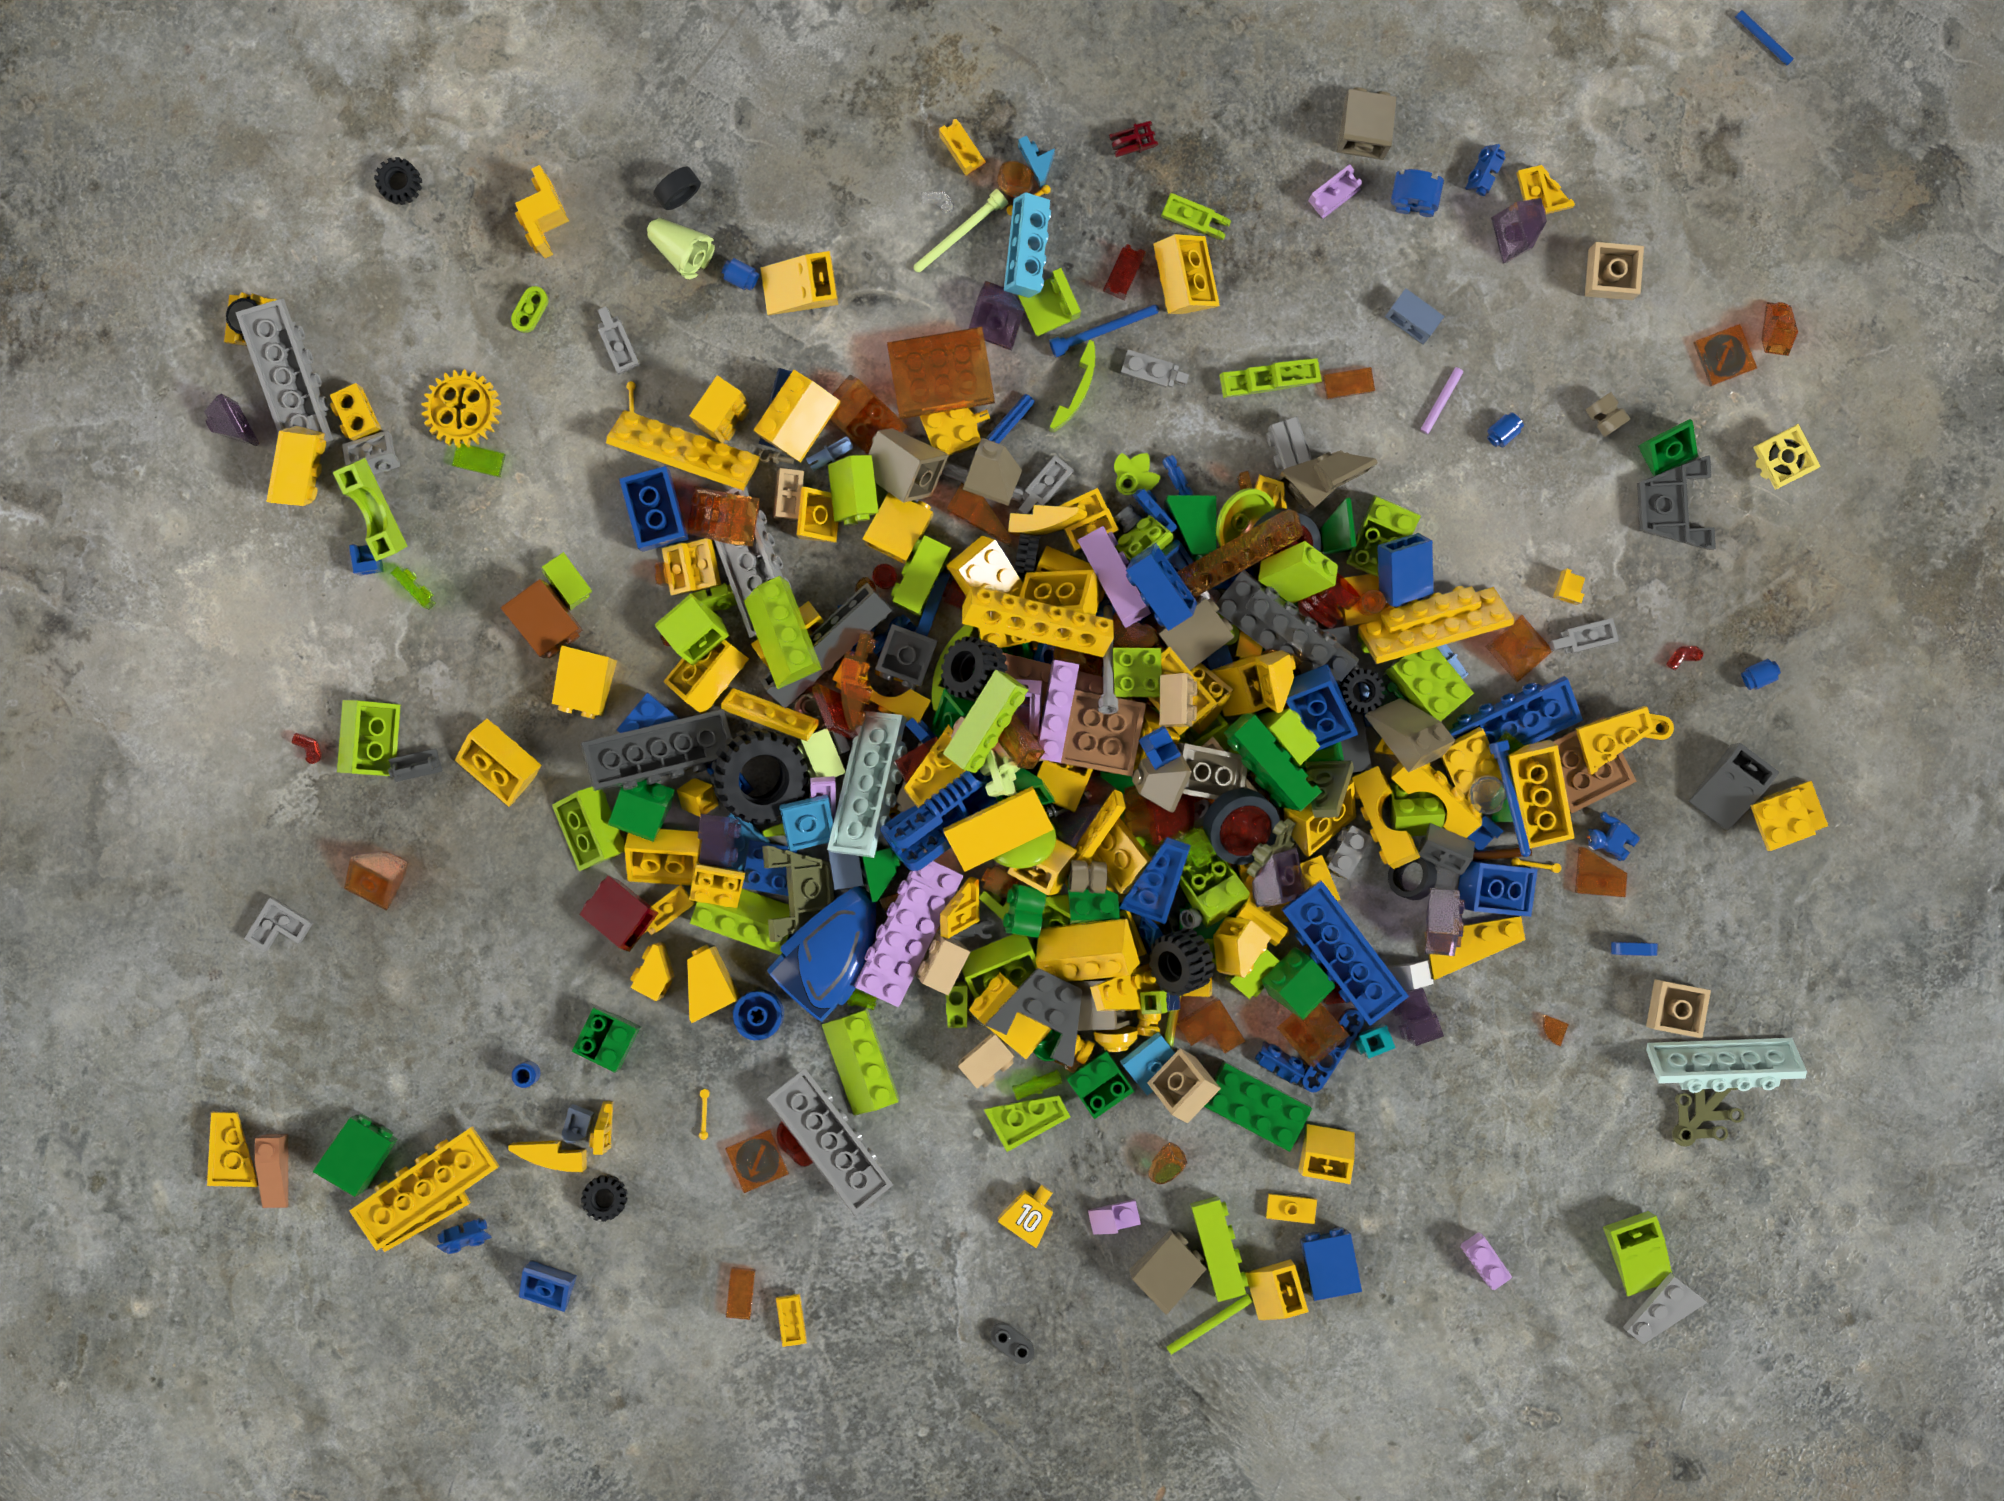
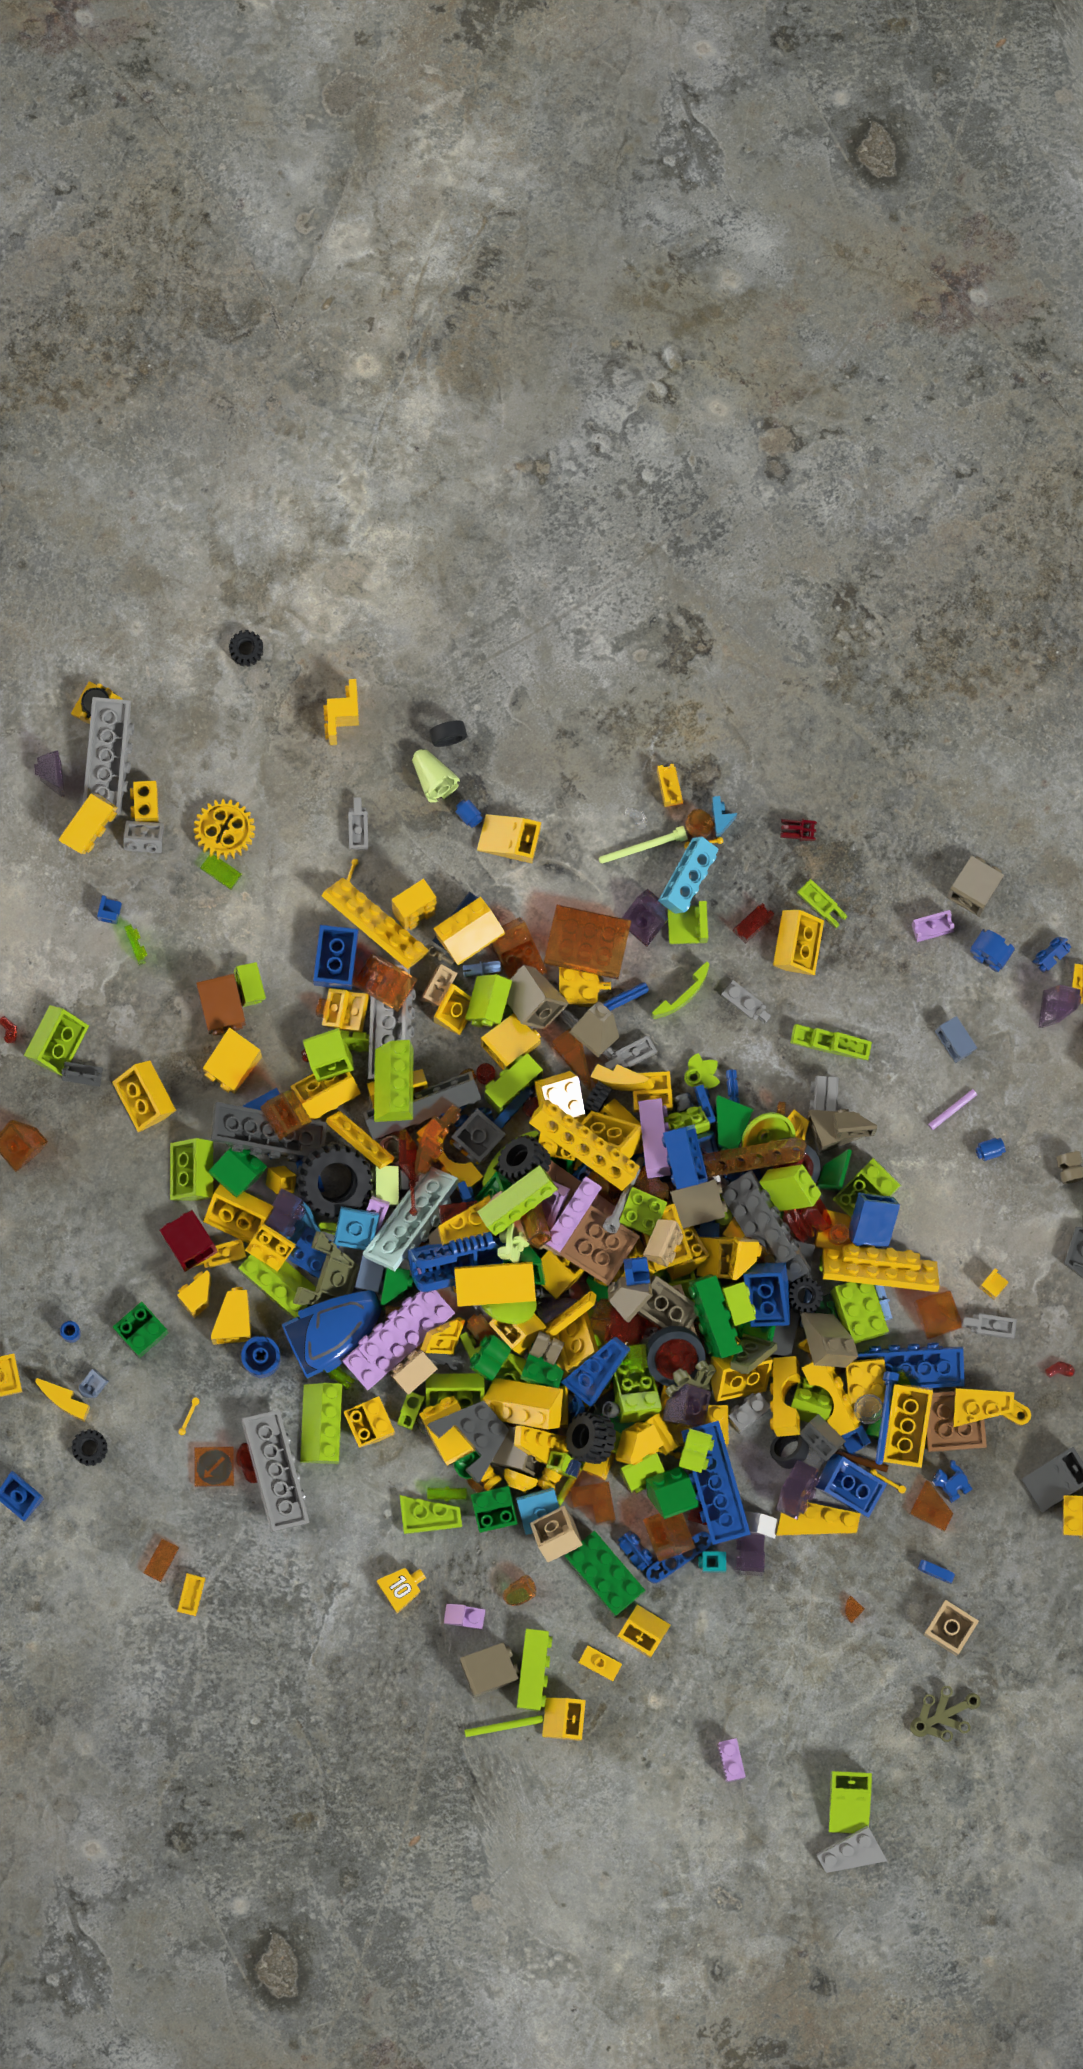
camera: 20 degrees right, 10 degrees down
(382, 530) = (130, 859): lime arch -> none
(528, 309) = (303, 778): lime plate -> none
(602, 1135) = (108, 1398): yellow wing -> none
(670, 721) = (286, 1114): none -> clear orange slope
(866, 776) = (413, 1211): none -> clear red hinge
(915, 1040) = (369, 1422): none -> yellow slope
(986, 1060) = (417, 1457): tan brick -> none
(1013, 1343) = (349, 1679): dark grey plate -> none
(1061, 345) = (684, 957): blue piece -> none
(1310, 928) = (695, 1451): none -> lime brick
(1330, 1264) = (613, 1715): blue brick -> none
(1349, 383) = (888, 1069): clear orange tile -> none
(1726, 1063) = (970, 1683): light aqua plate -> none

